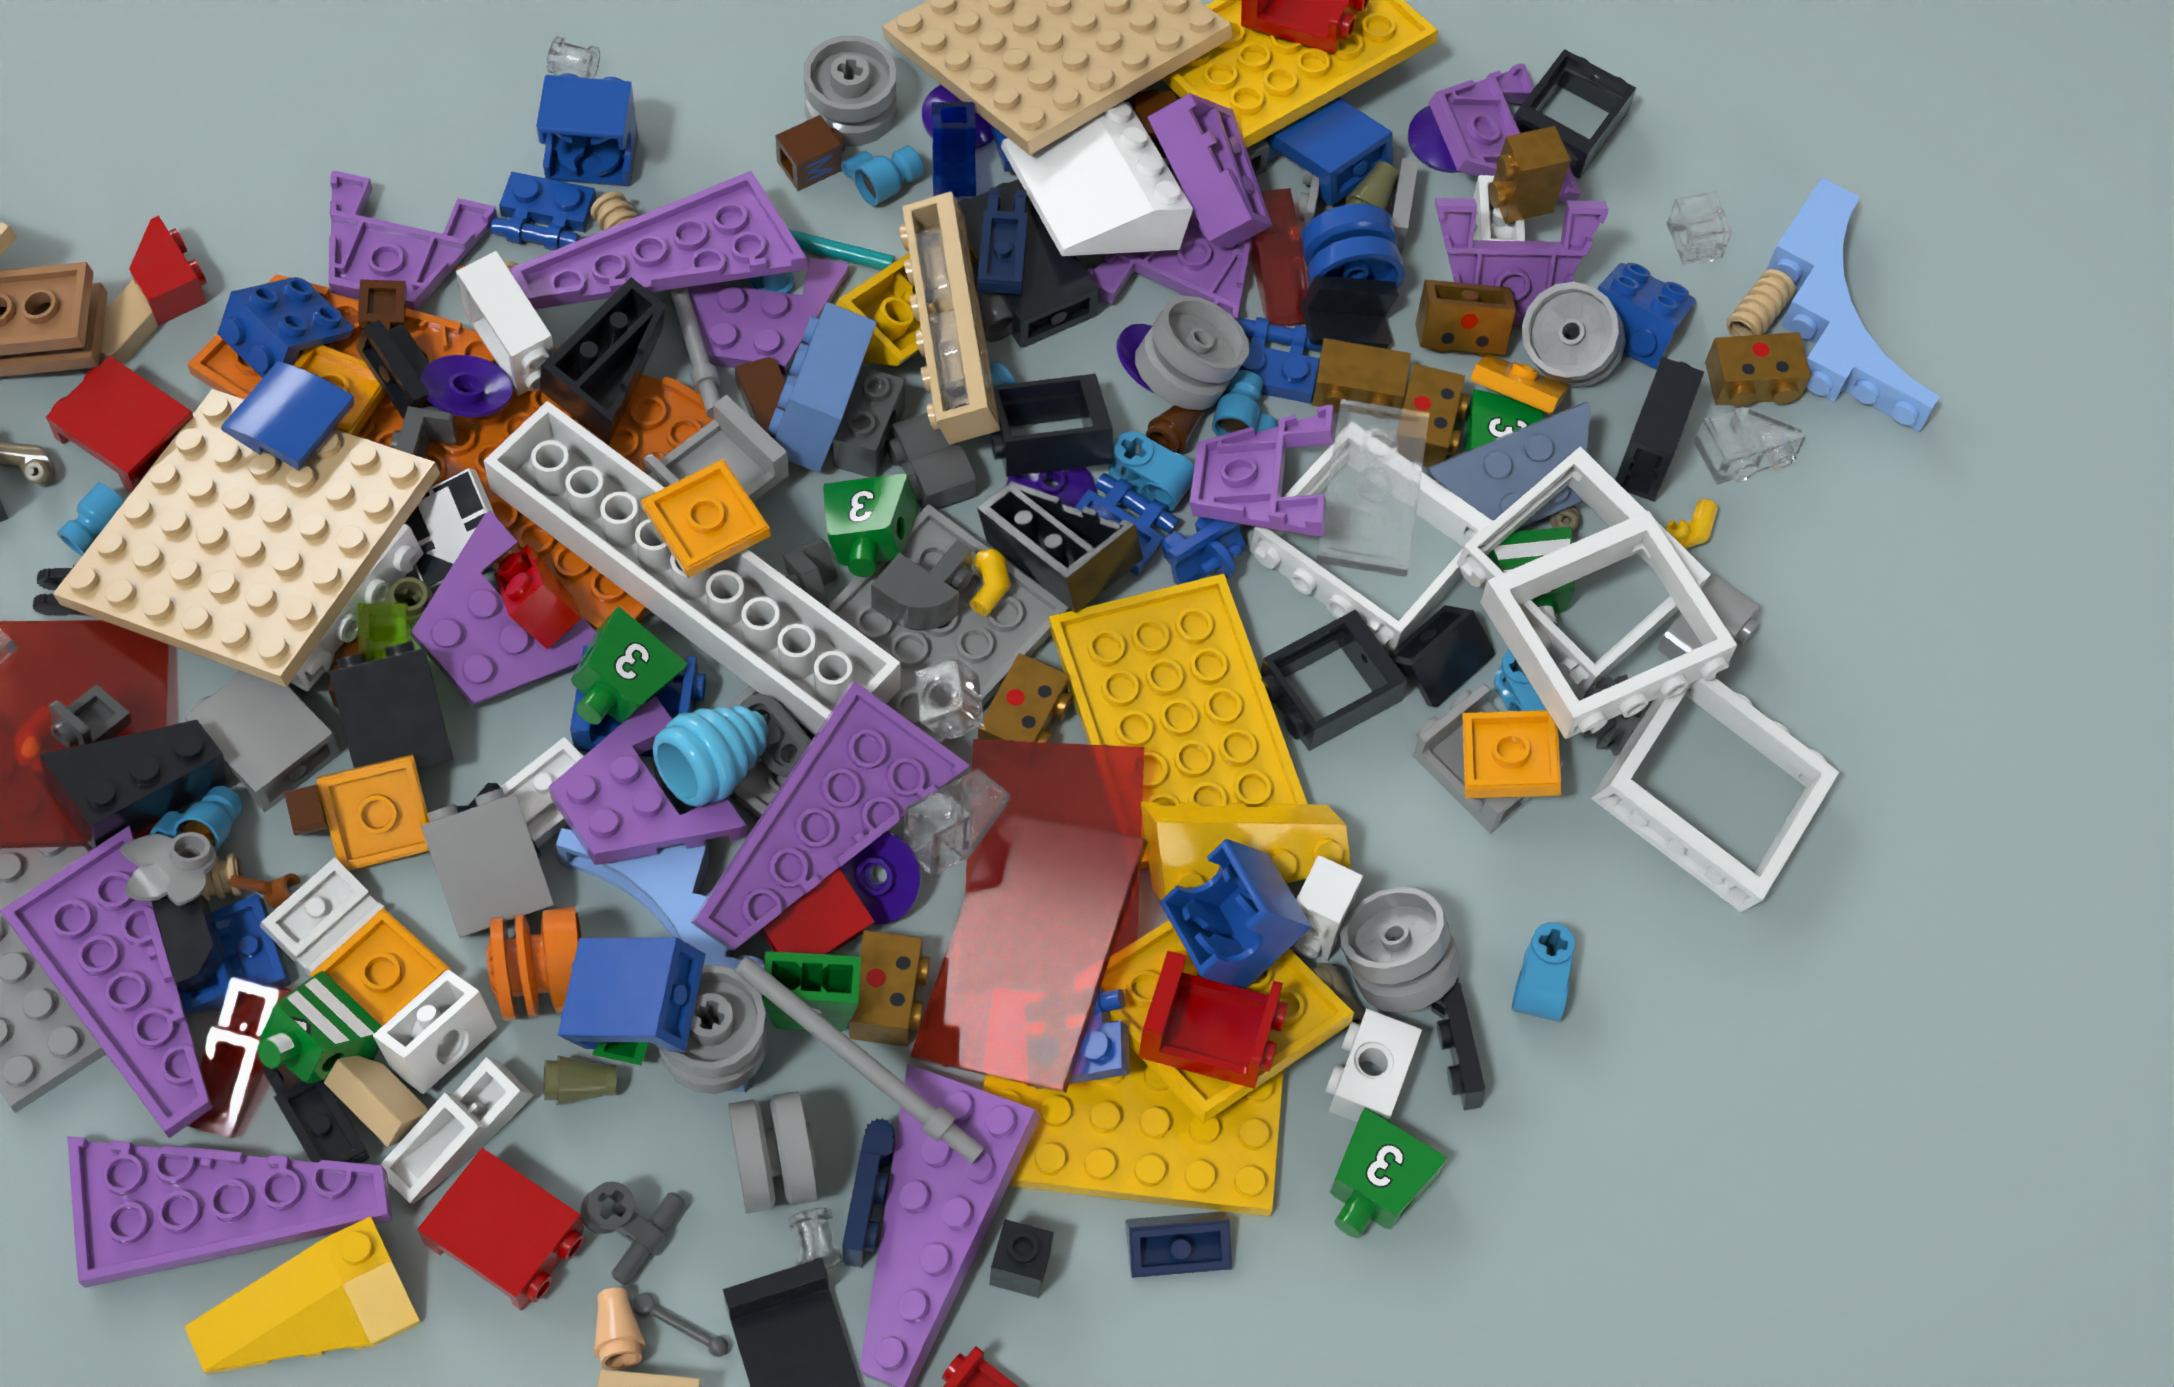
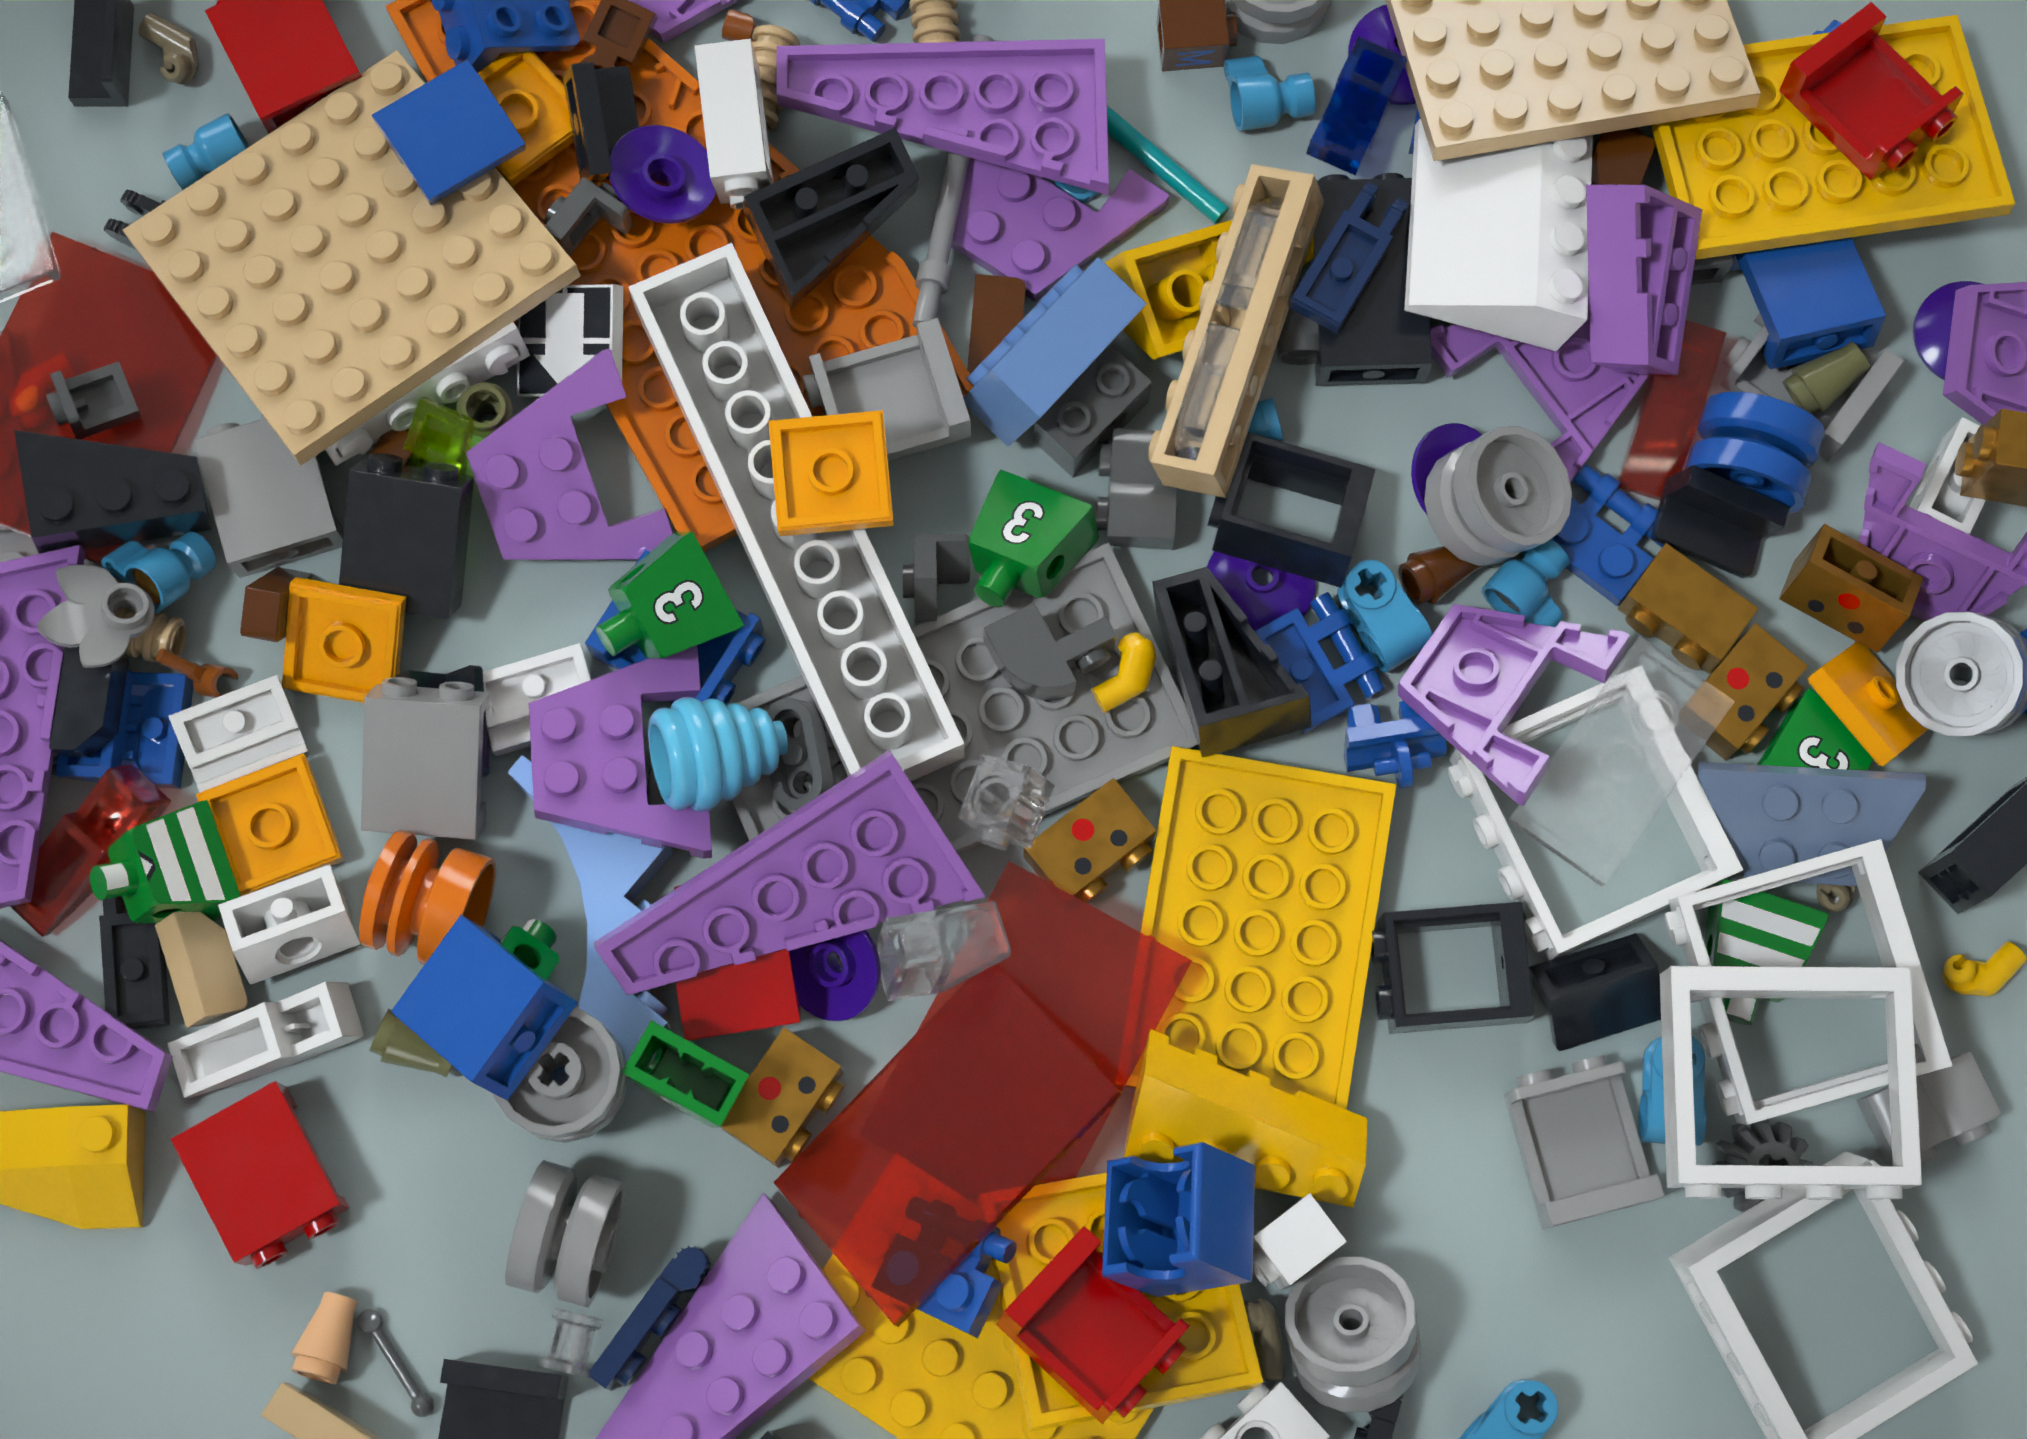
camera: 30 degrees right, 15 degrees up
(536, 597) = (621, 467): red slope -> none
(643, 1234) = (403, 1251): dark grey piece -> none
(937, 1122) = (743, 1292): light grey bar -> none
(1511, 754) = (1601, 1164): light orange plate -> none

